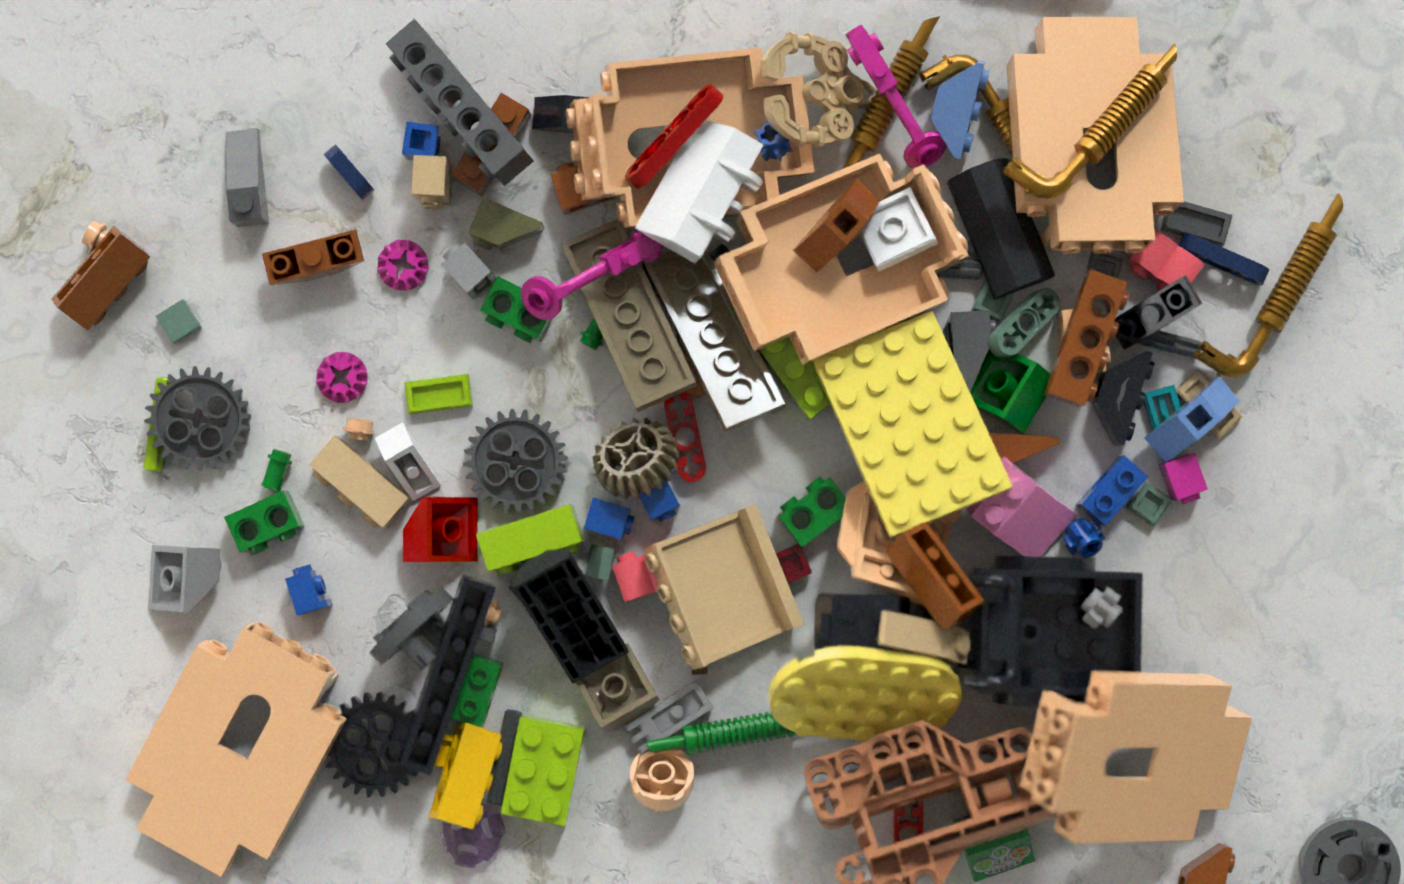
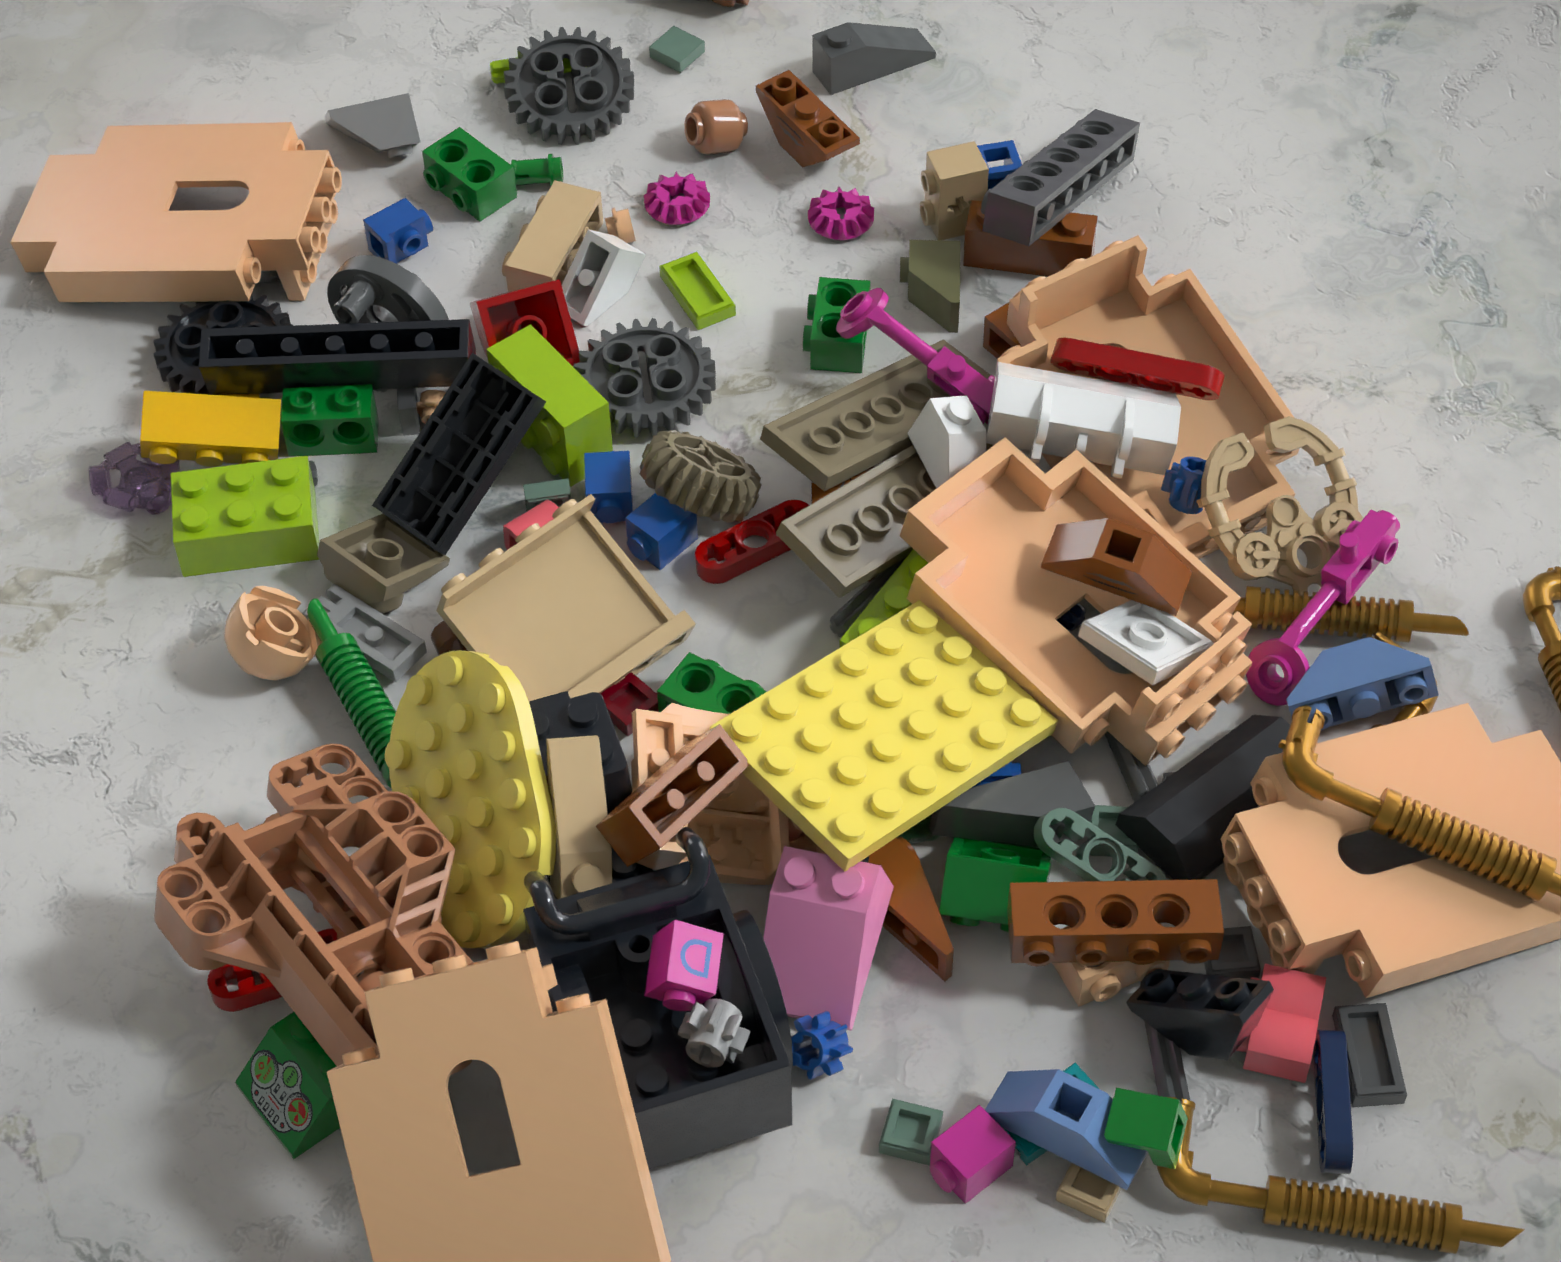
camera: 70 degrees right, 35 degrees down
(284, 324) = (715, 126): none -> nougat head
(349, 172) = (926, 132): dark blue beam -> none
(467, 270) = (863, 245): light grey brick -> none
(688, 286) = (948, 436): none -> white slope
(1060, 612) = (683, 965): none -> dark pink brick
(1112, 490) = (906, 1059): blue brick -> none
(1120, 395) = (1059, 1027): black slope -> none
(1222, 379) = (1147, 1124): none -> green panel

